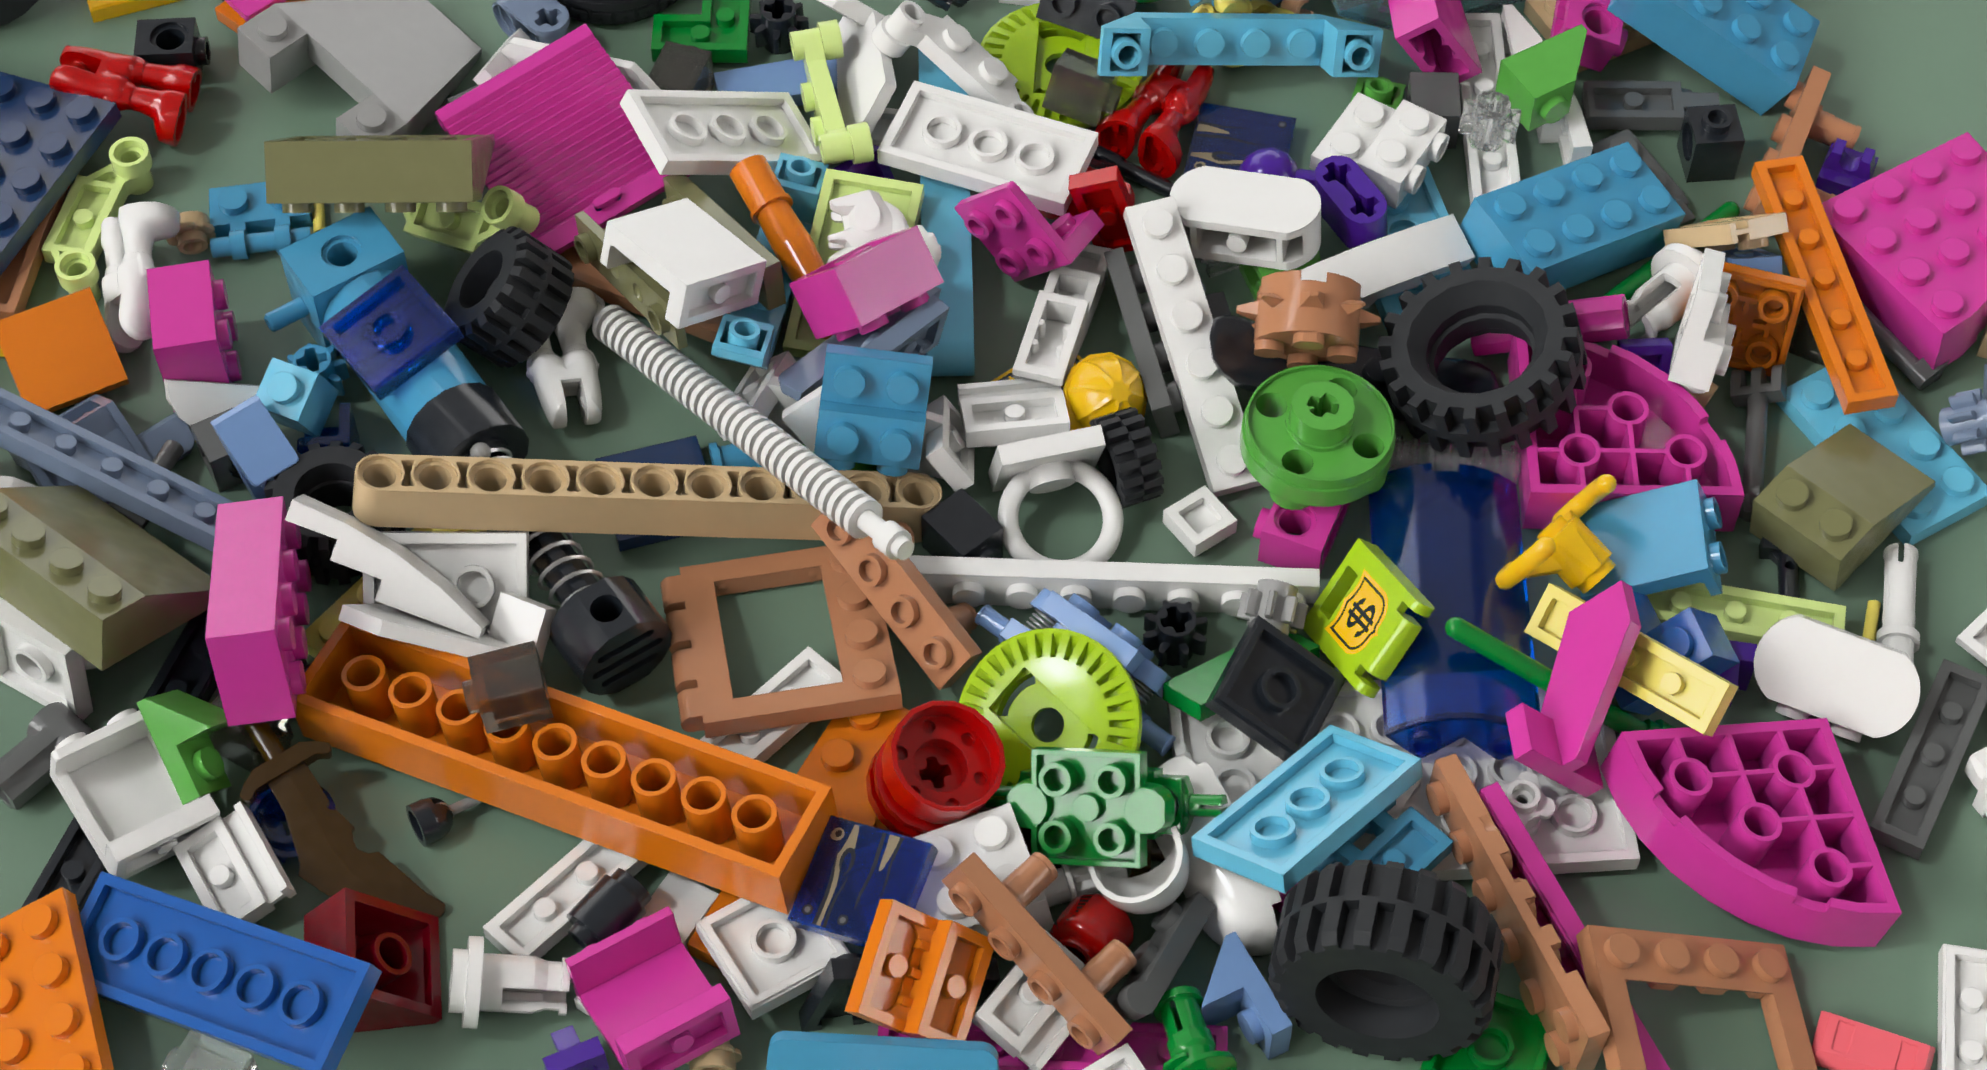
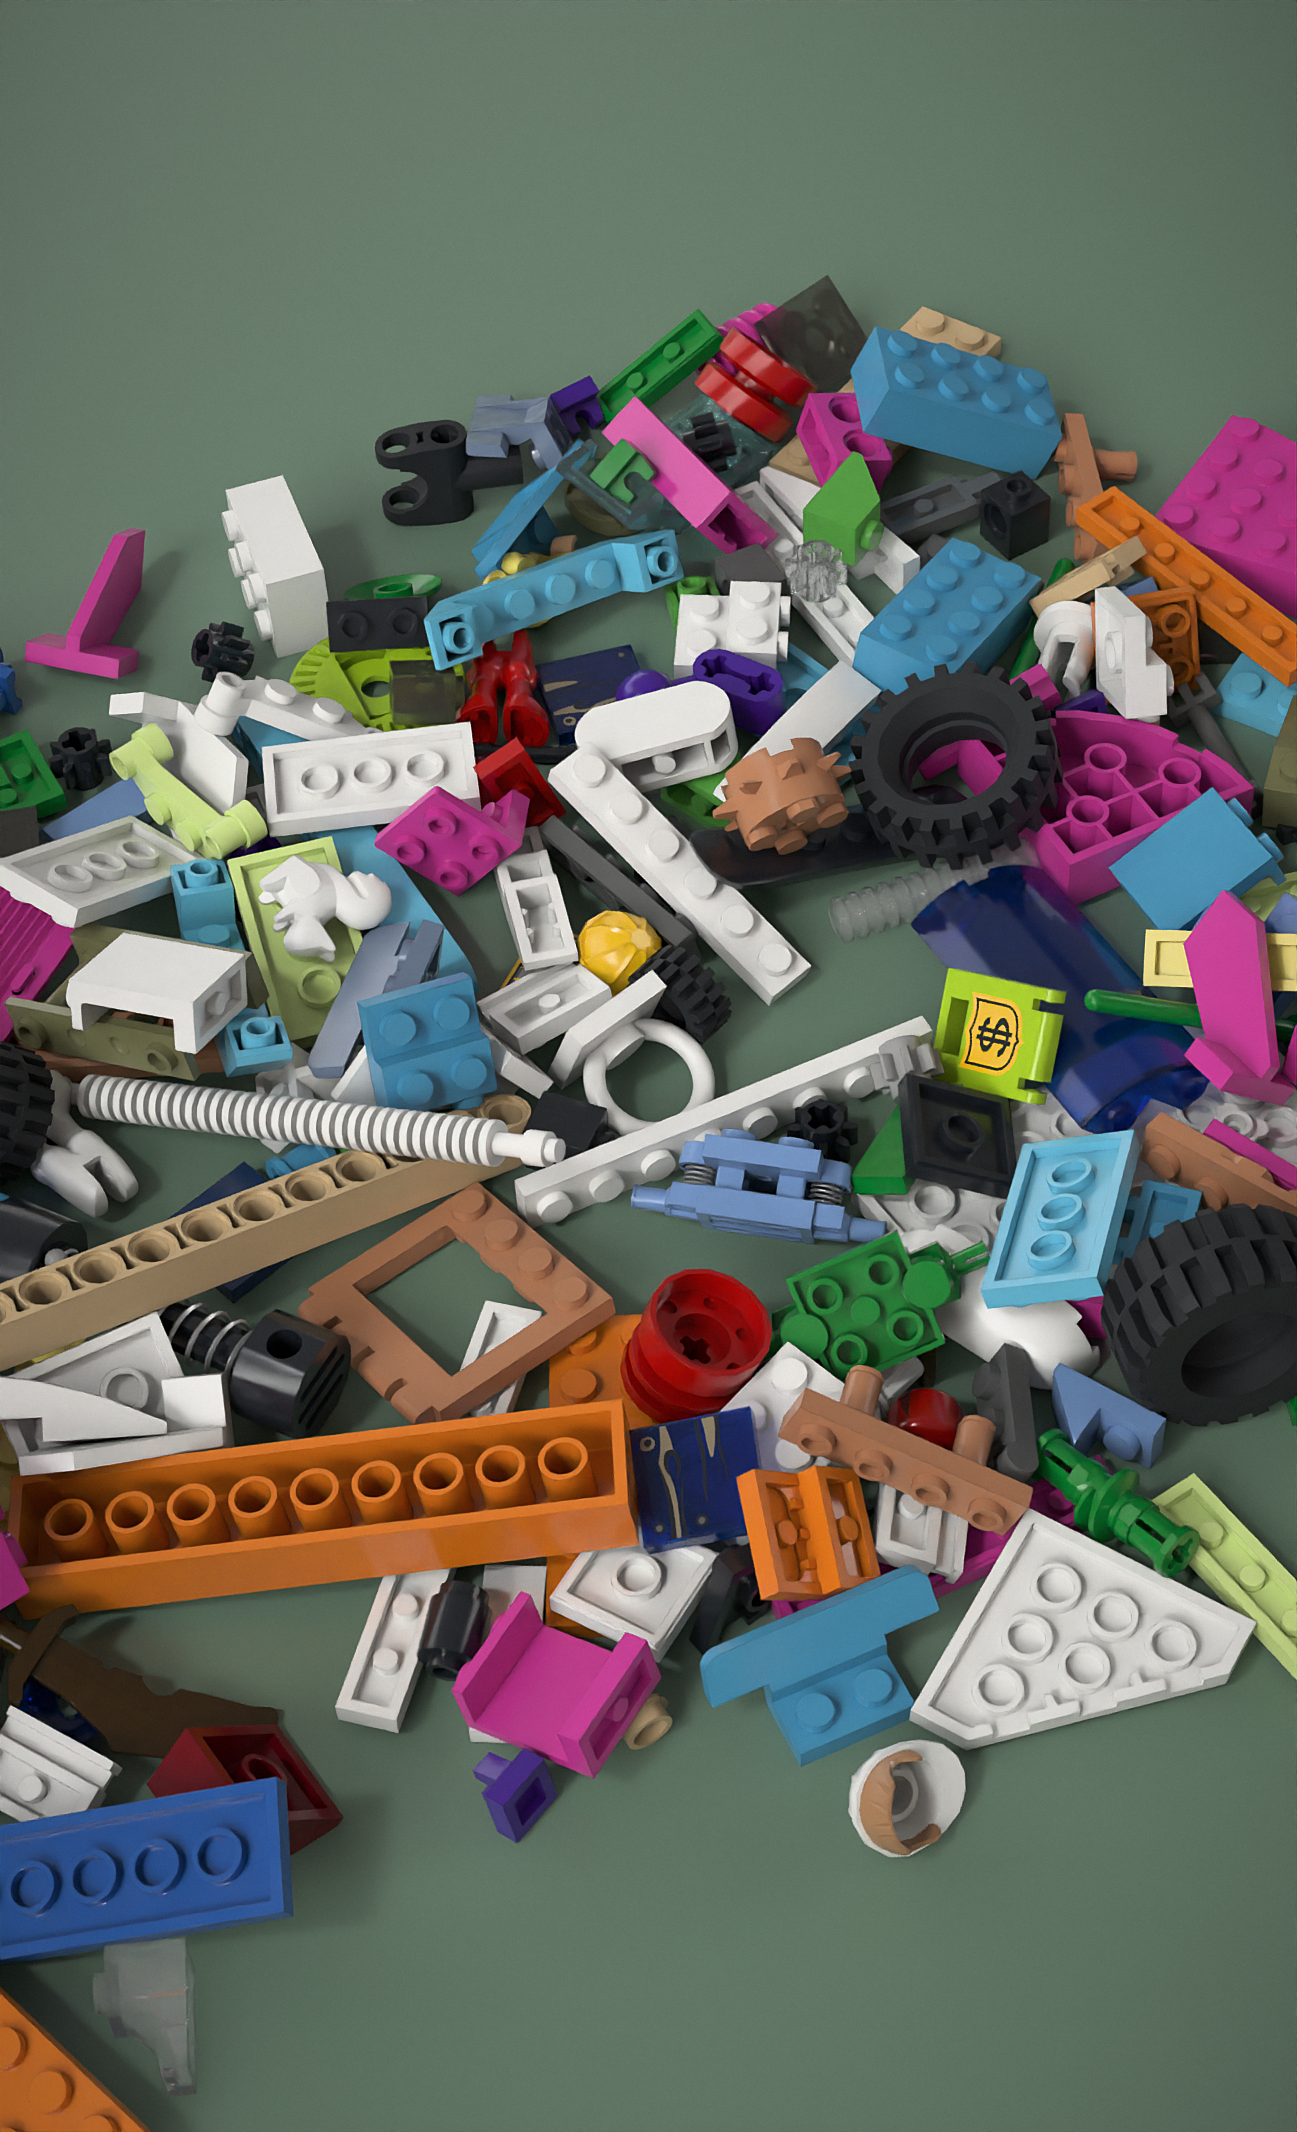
camera: 25 degrees left, 5 degrees down
(433, 818) = (213, 1633): black hinge -> none
(504, 983) = (373, 1755): white piece -> none
(508, 687) = (241, 1457): clear smoke brick -> none
(774, 213) = (201, 918): orange piece -> none
(868, 285) = (352, 938): dark pink brick -> none
(927, 628) = (554, 1211): nougat plate -> none
(1070, 676) = (766, 1205): lime piece -> none
(1150, 890) = (963, 1355): white helmet -> none
(1199, 521) = (777, 1027): white plate -> none
(1310, 548) = (870, 976): dark pink brick -> none
(1317, 437) = (851, 898): bright green piece -> none
(1566, 545) = (1135, 892): yellow piece -> none
(1845, 168) = (1145, 489): dark purple tile -> none

